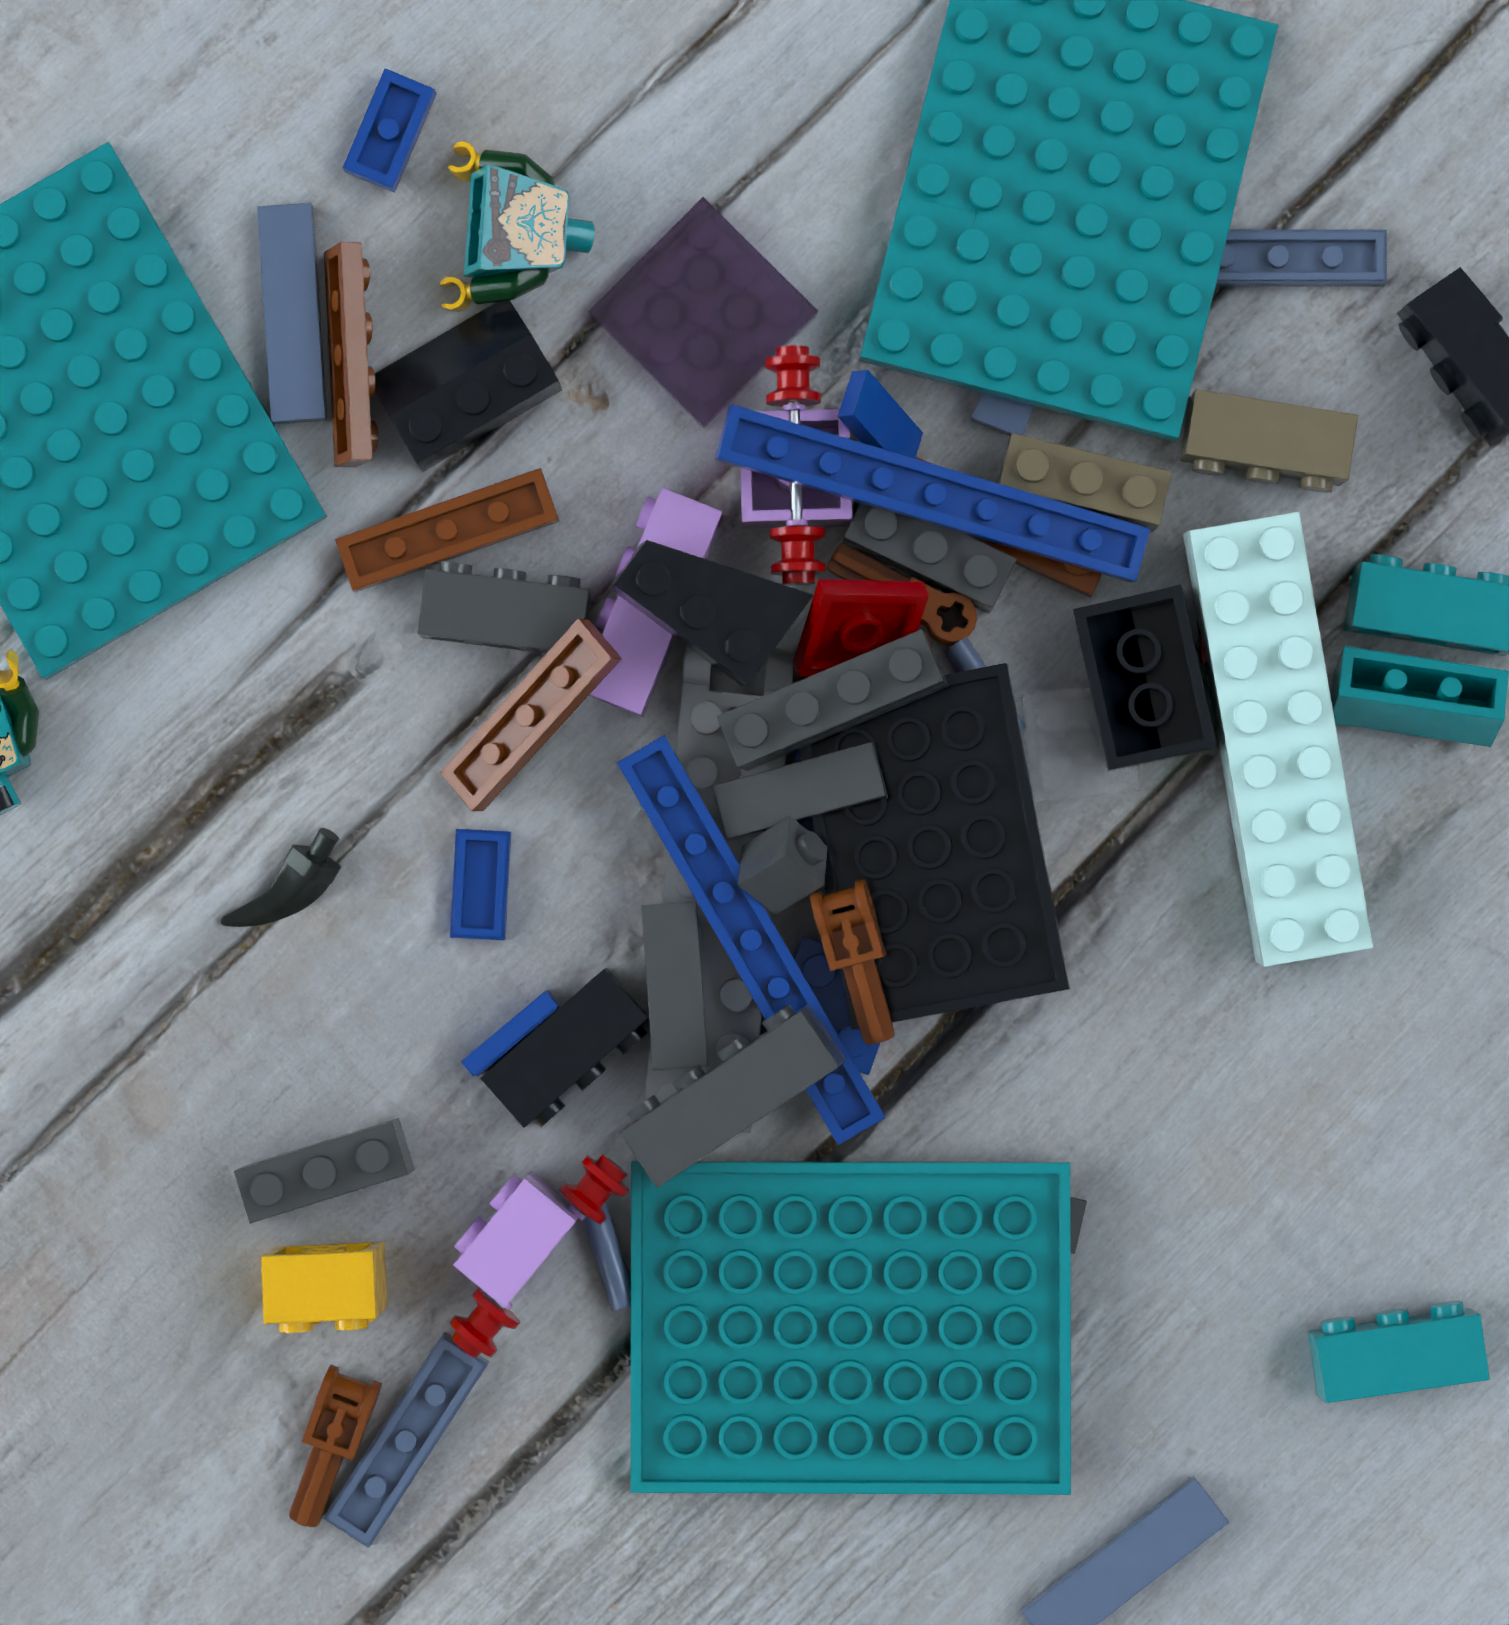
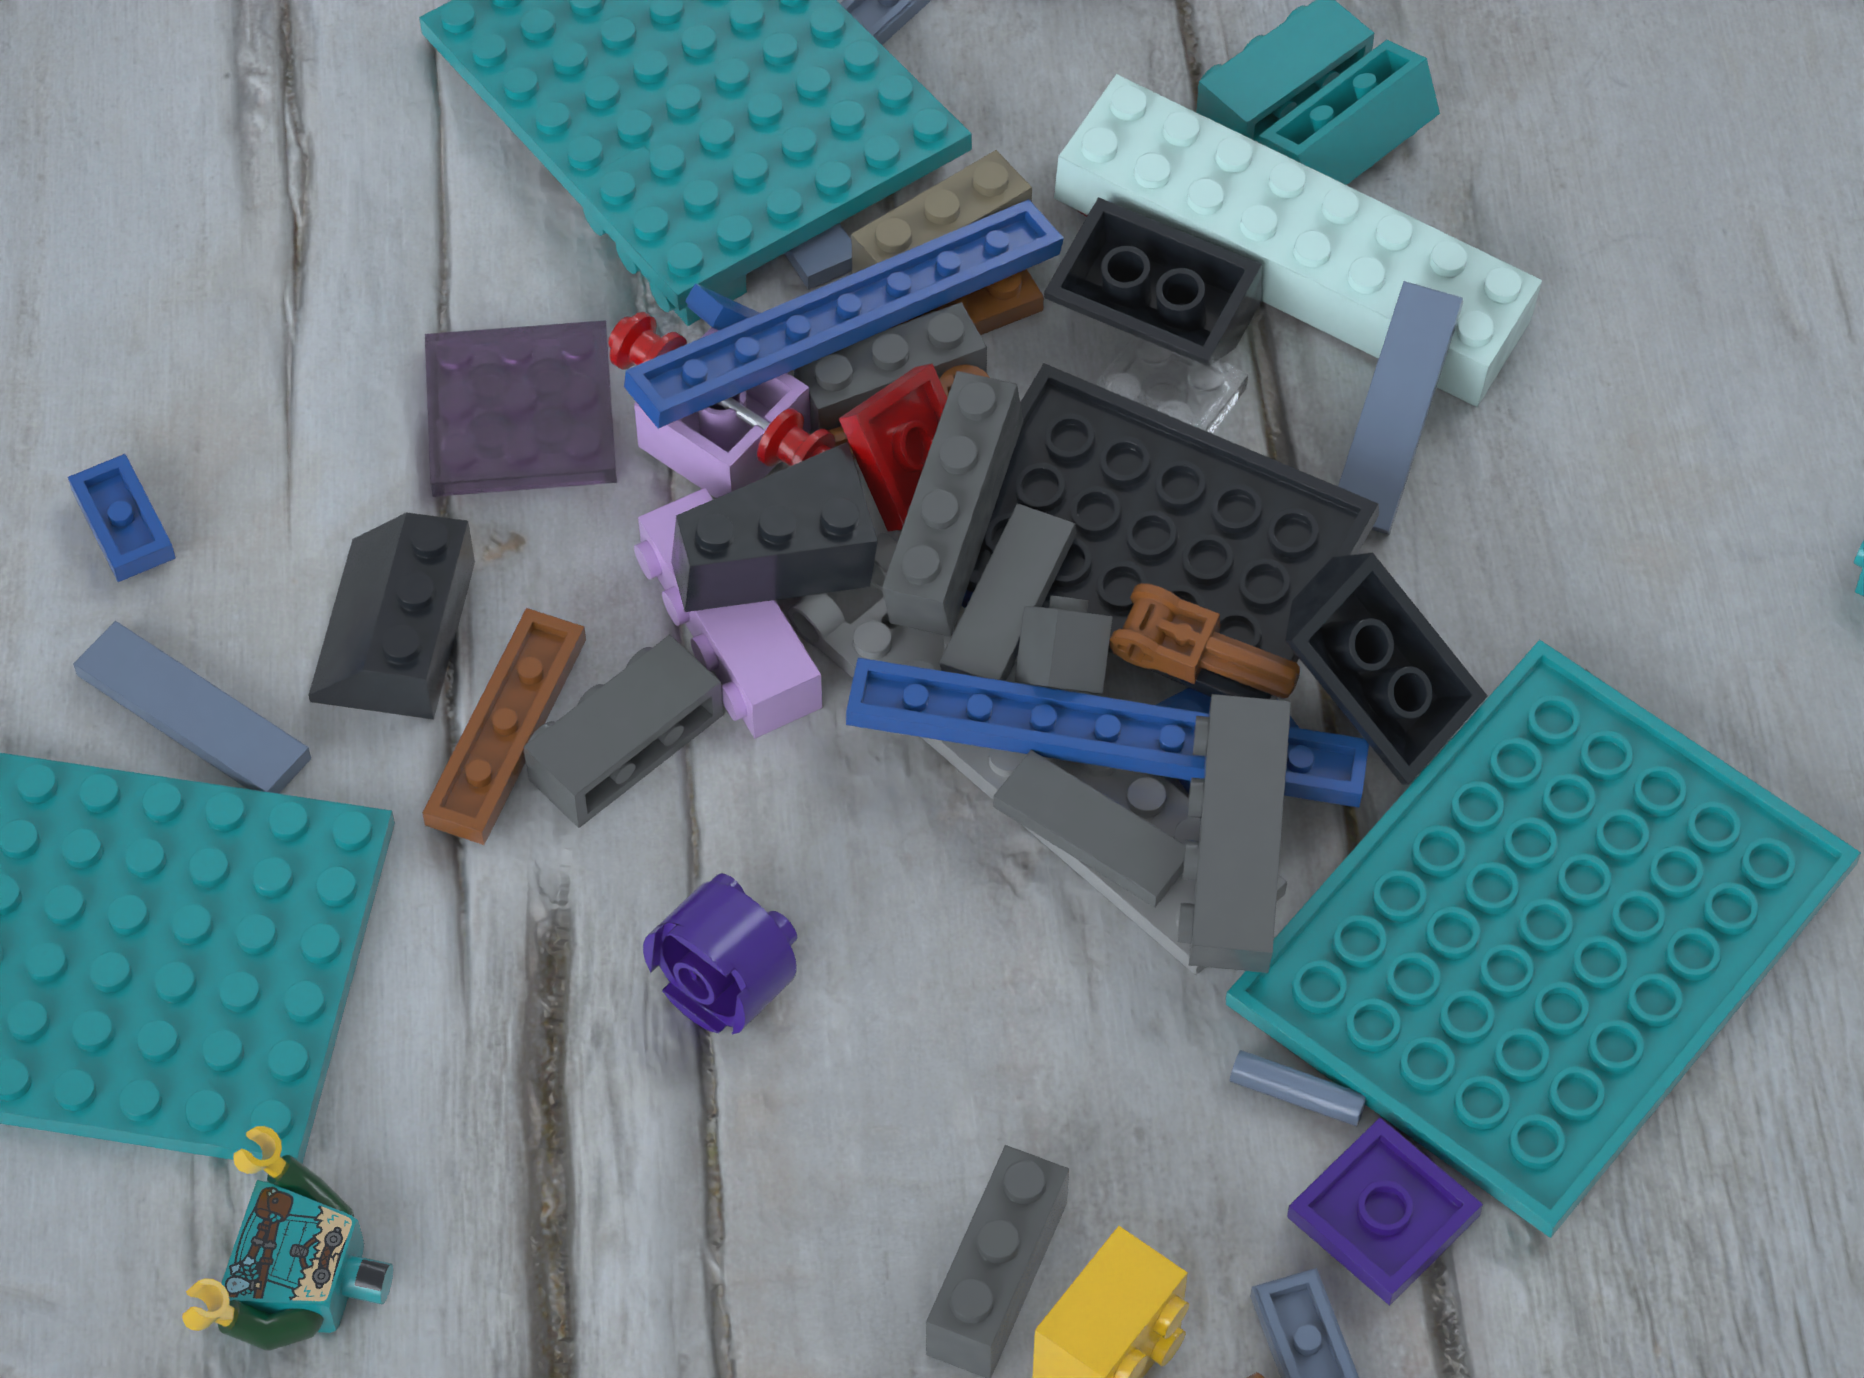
camera: 55 degrees left, 30 degrees down
(299, 883) = (704, 1095): pearl dark grey bar -> none
(348, 336) = (275, 685): dark orange plate -> none
(384, 828) = (722, 955): none -> dark purple brick
(480, 884) = (850, 941): blue tile -> none
(511, 1033) = (1013, 1006): blue tile -> none
(513, 227) = (302, 475): torso -> none
(518, 1239) = (1220, 1128): lavender brick -> none
(530, 714) = (736, 758): plate -> none
(561, 1377) = (1384, 1211): none -> dark purple plate
(567, 1050) = (1071, 971): black brick -> none
(935, 1084) = (1381, 662): none -> black slope
(1182, 926) = (1400, 398): none -> sand blue tile
(1268, 440) = (1035, 86): dark tan brick -> none

